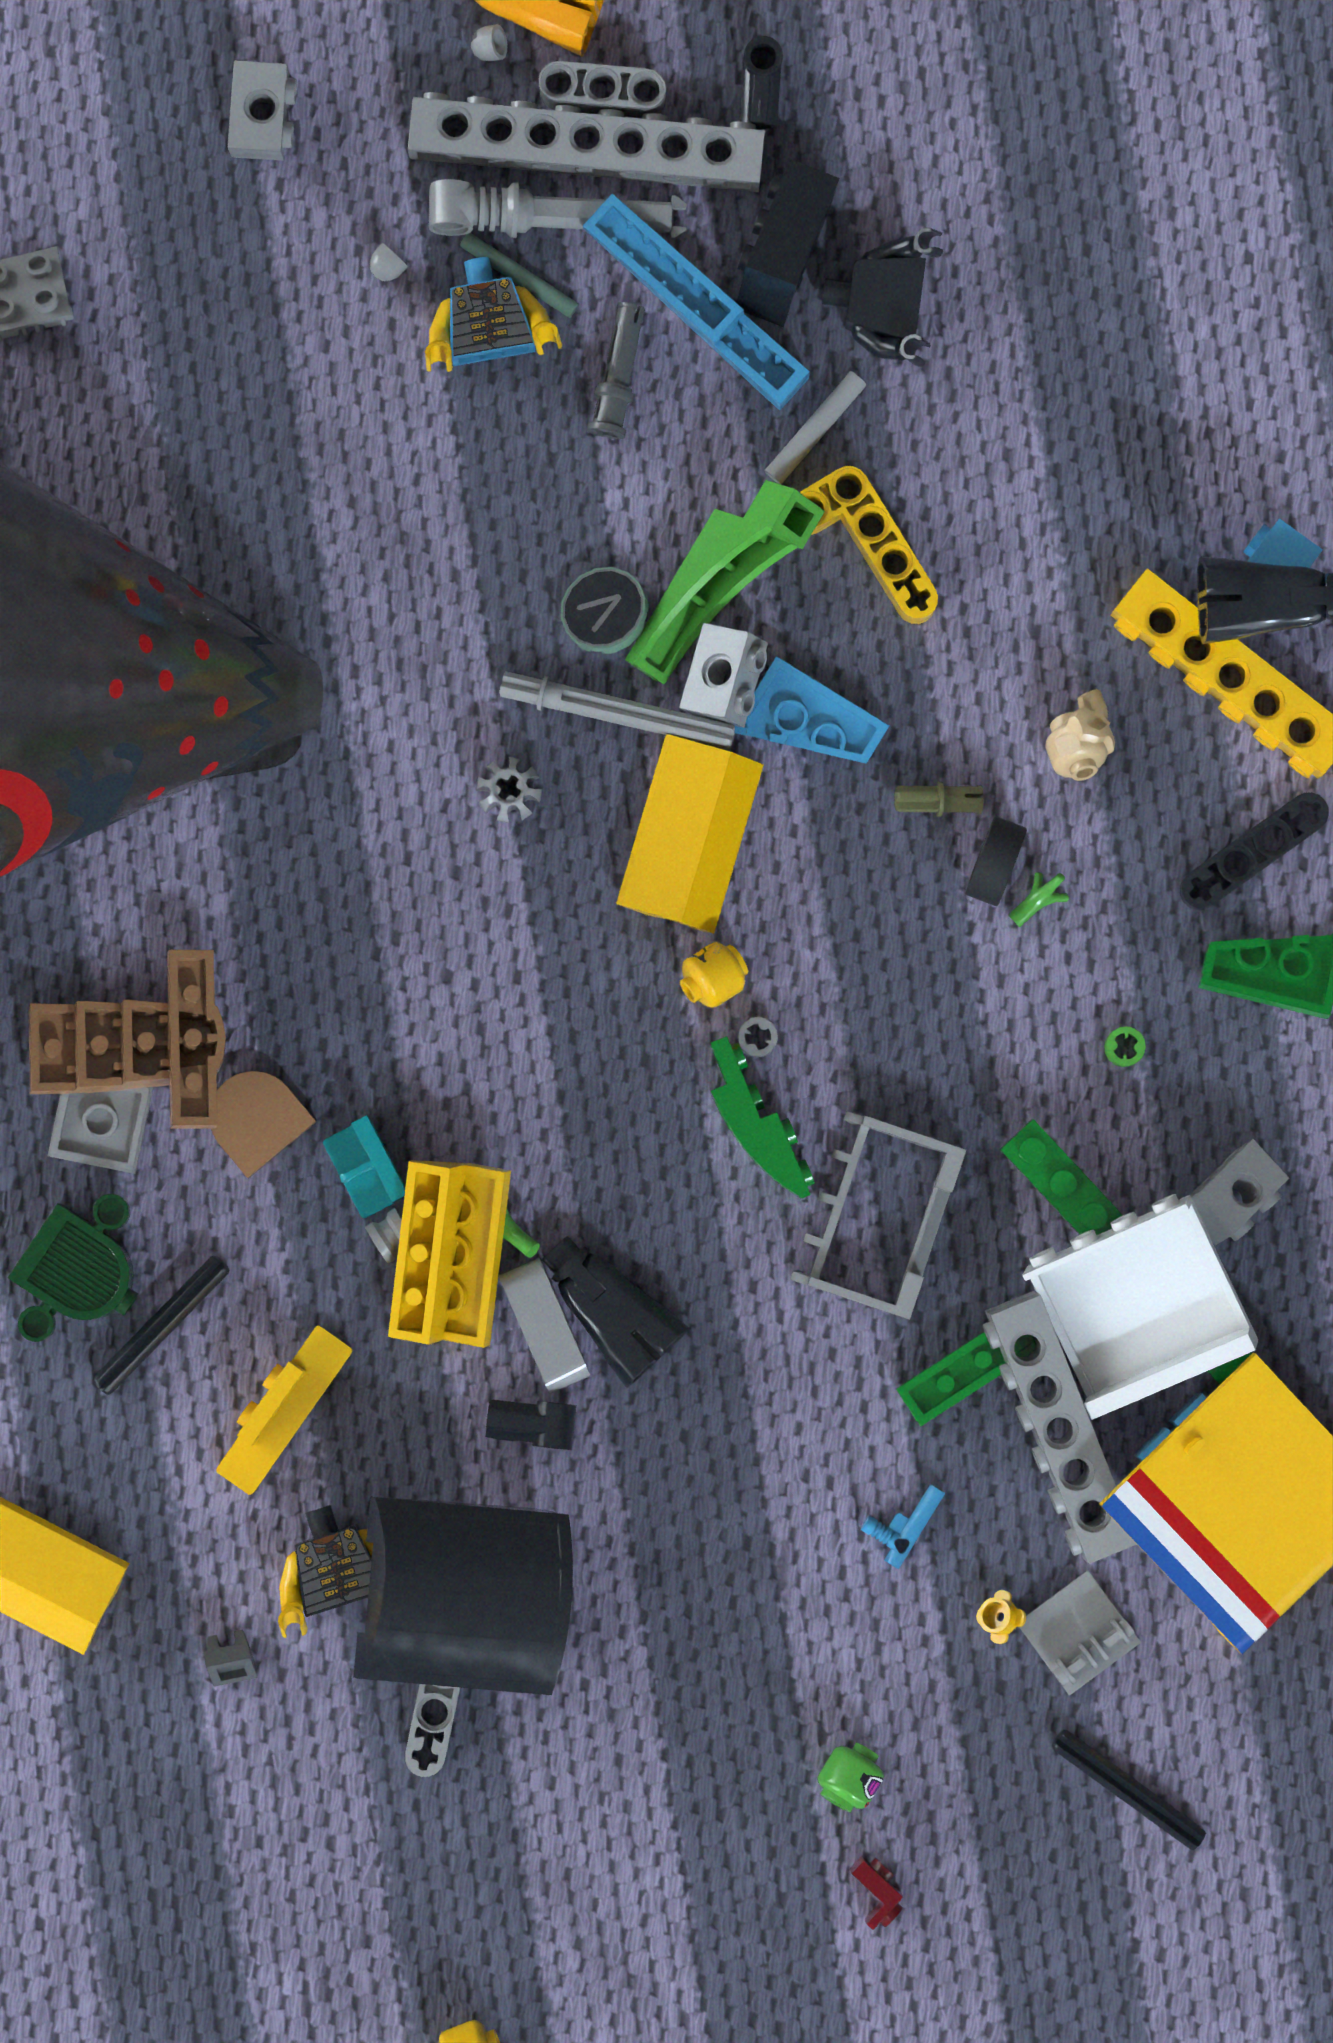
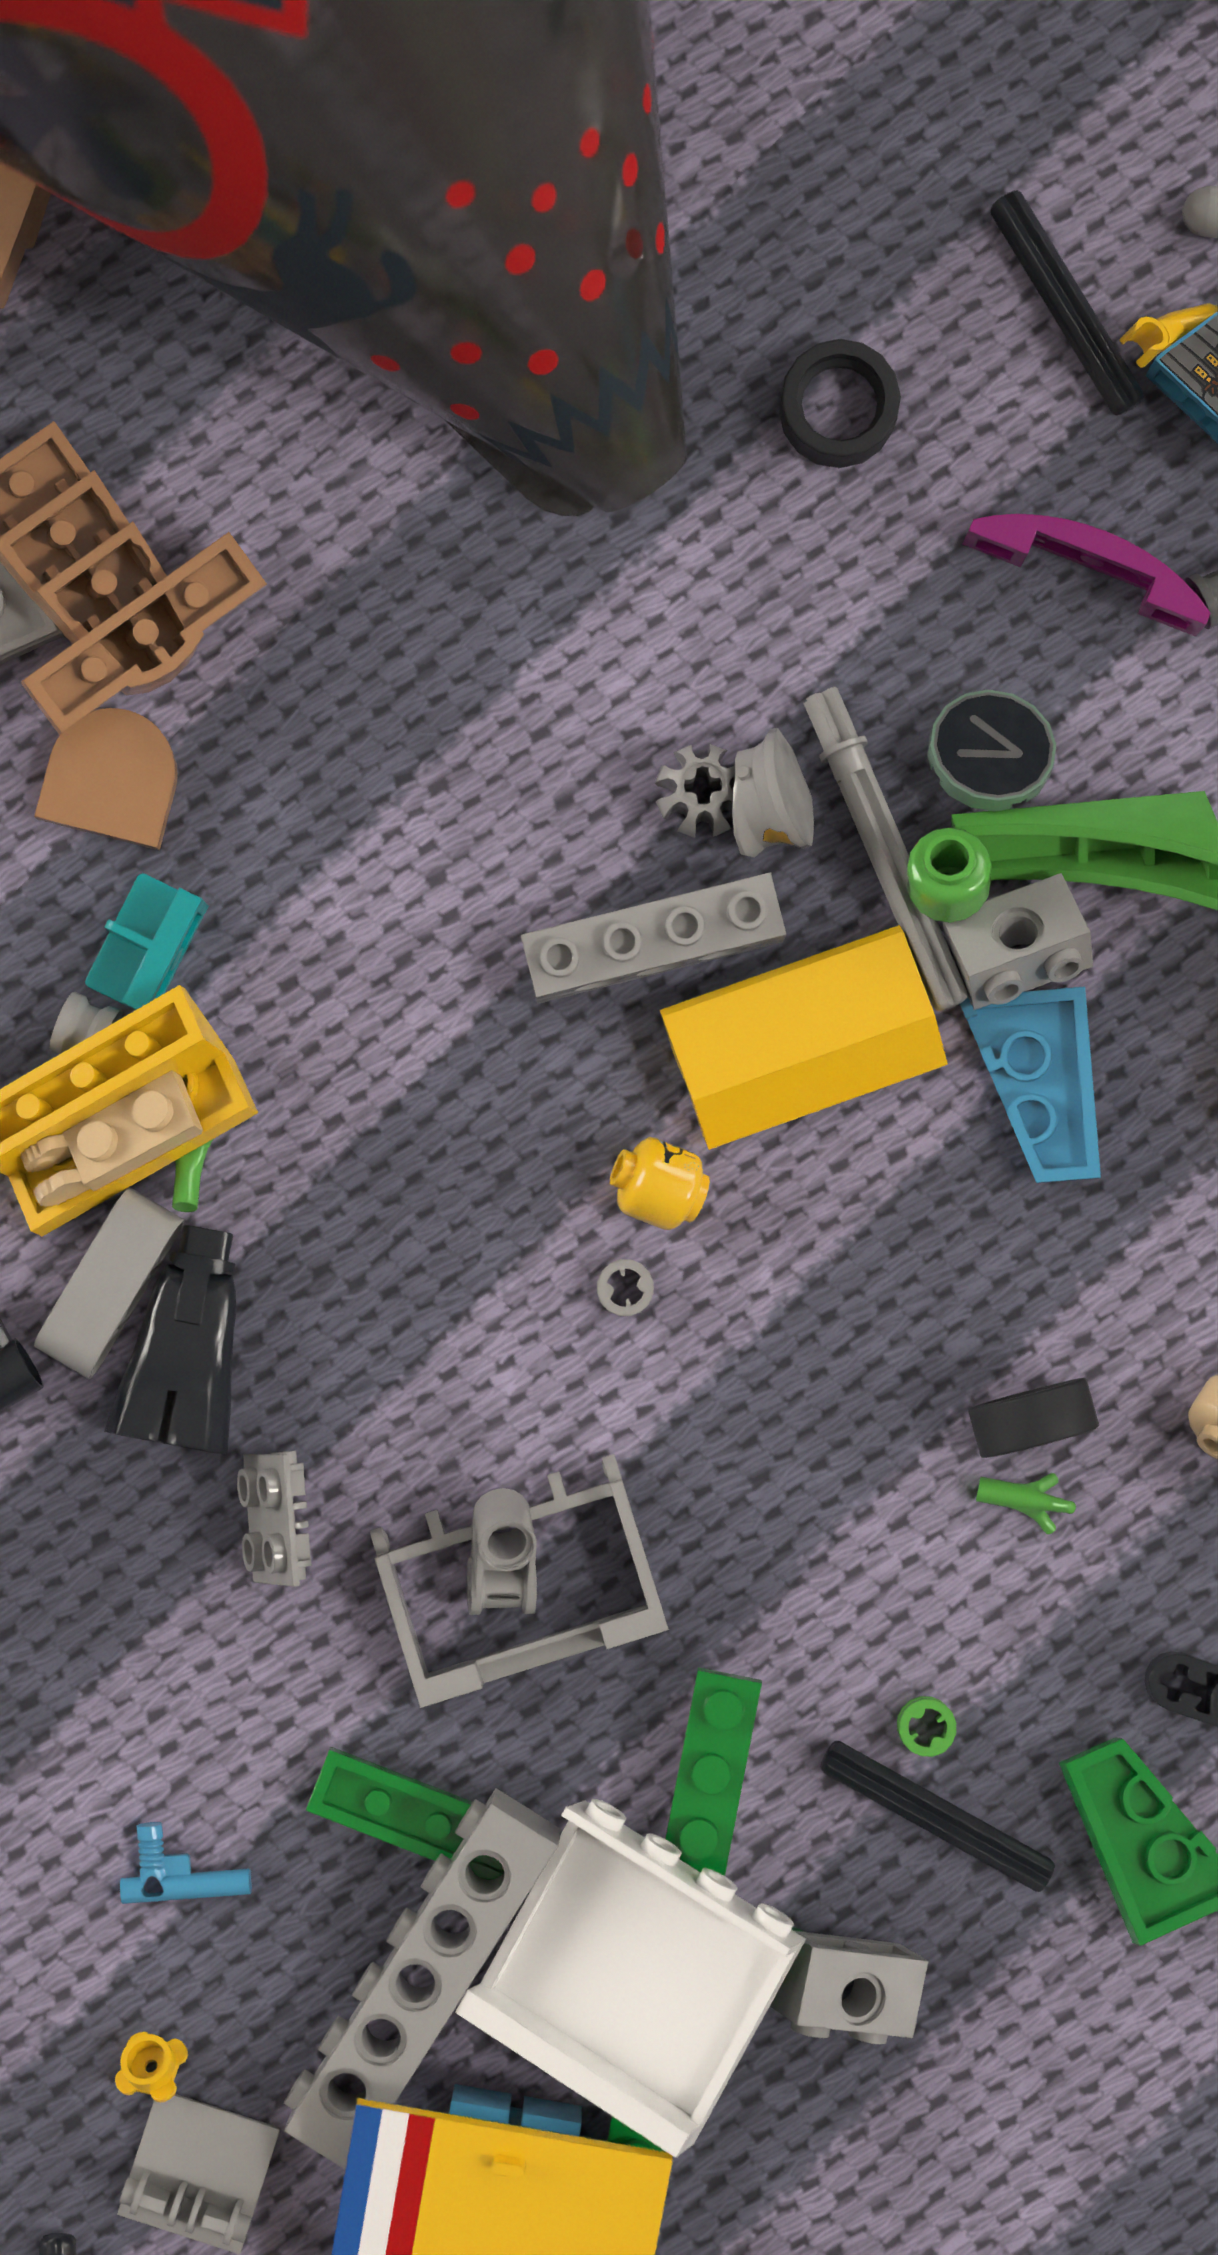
camera: 55 degrees right, 0 degrees up
(332, 520) = (846, 355): none -> black tyre
(380, 381) = (1066, 302): none -> black axle
(468, 1260) = (115, 1140): none -> tan hinge
(542, 754) = (771, 798): none -> light grey hat
(572, 878) = (654, 938): none -> light grey brick
(589, 450) = (1166, 597): none -> magenta slope
(659, 687) = (949, 875): none -> bright green head
(731, 1320) = (272, 1546): none -> light grey hinge
(763, 1139) = (509, 1381): green slope -> none
(864, 1216) = (502, 1564): none -> light grey piece
(939, 799) = (1057, 1297): olive axle -> none
(1179, 1076) = (937, 1816): none -> black axle

